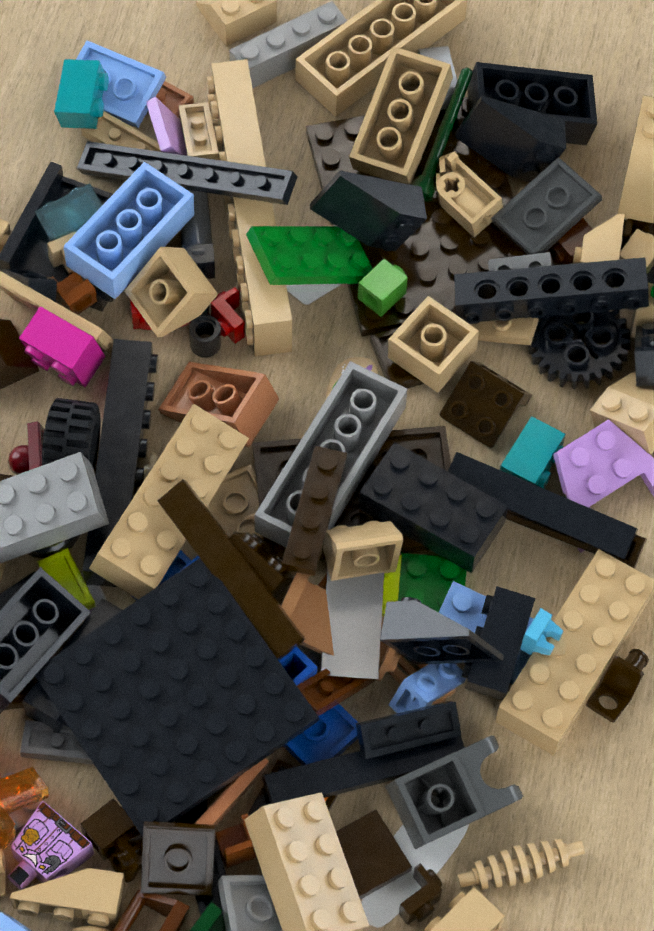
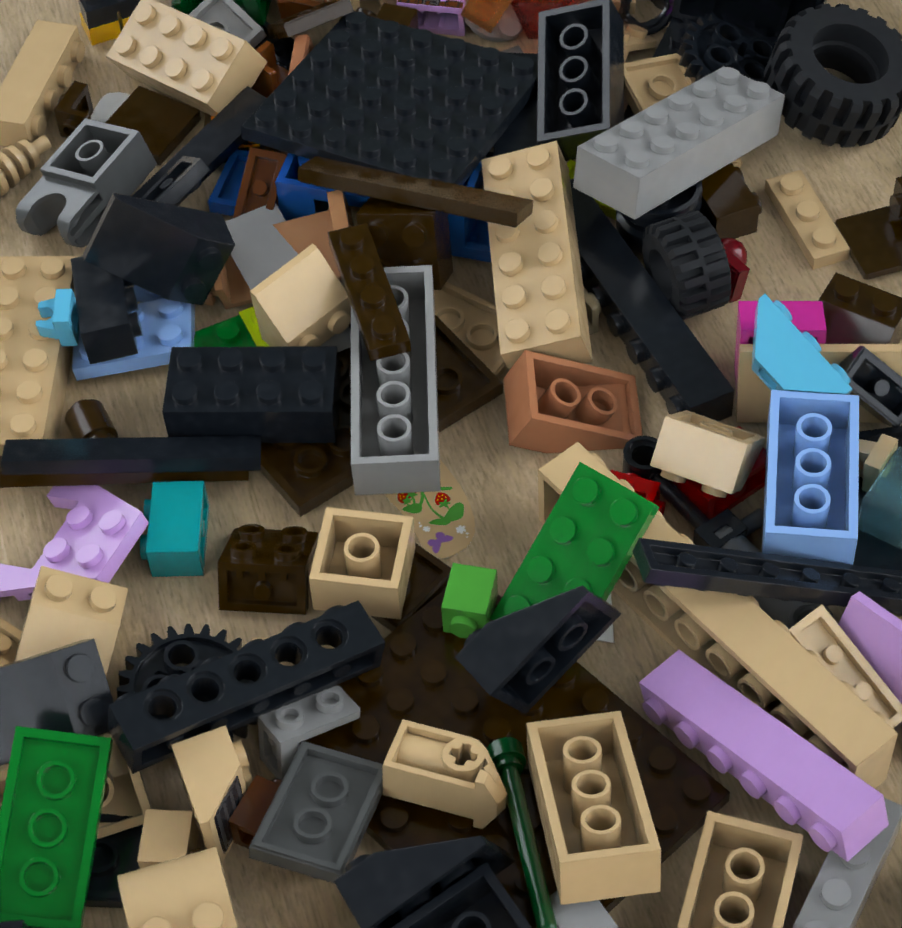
camera: 155 degrees right, 10 degrees down
(83, 292) = (790, 358): none -> medium azure slope
(283, 106) = (764, 756): none -> lavender brick
(552, 568) = (89, 420): none -> dark brown brick

